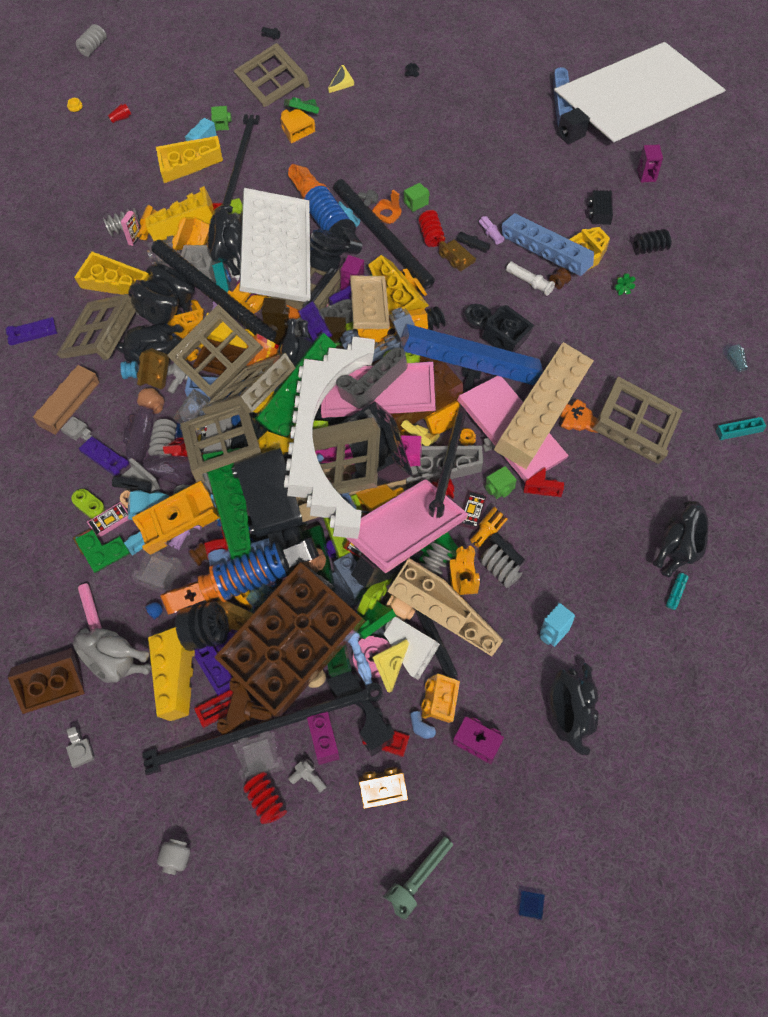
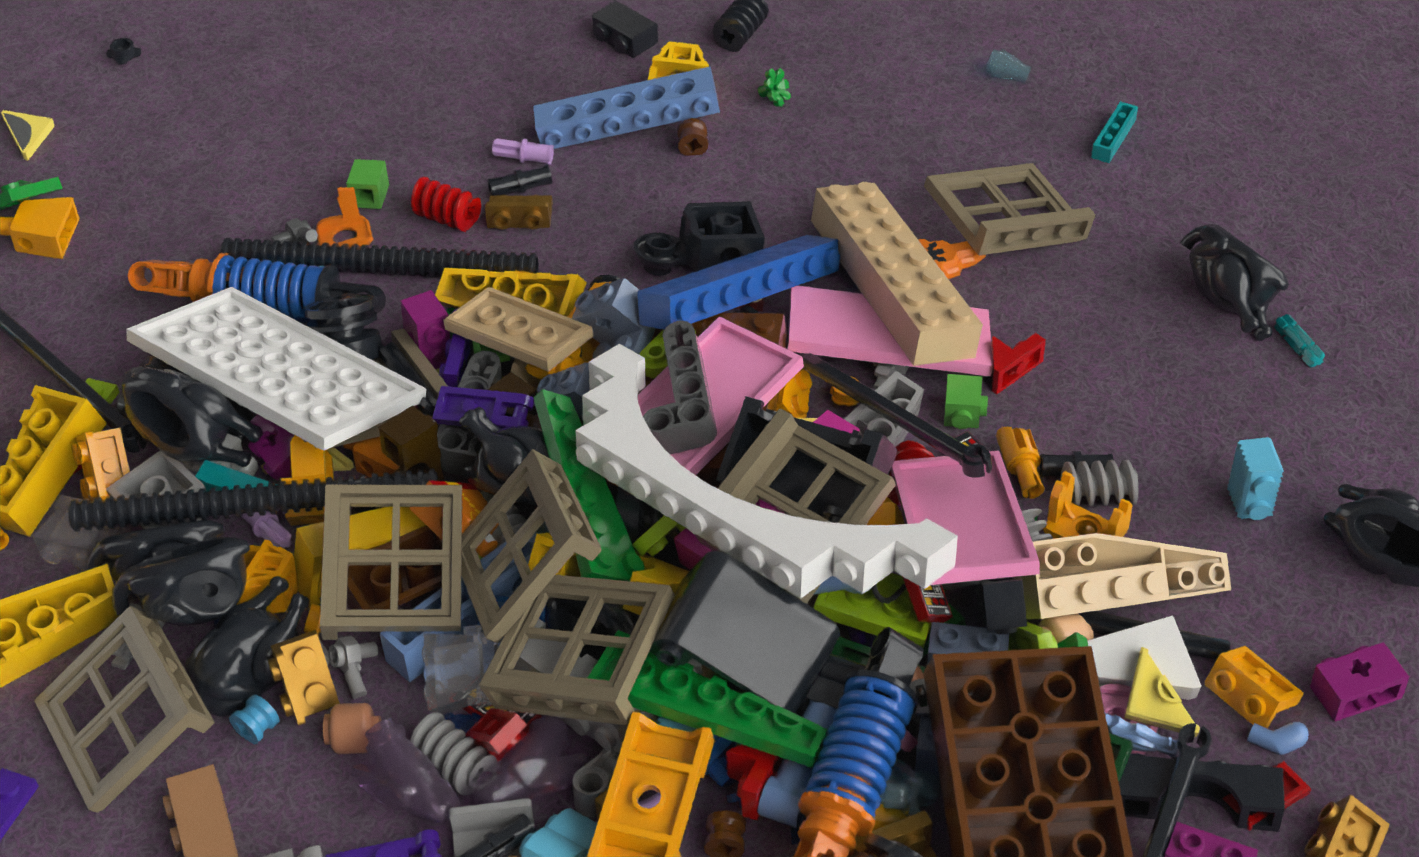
camera: 50 degrees left, 15 degrees down
(536, 281) = (667, 162): white pin -> none

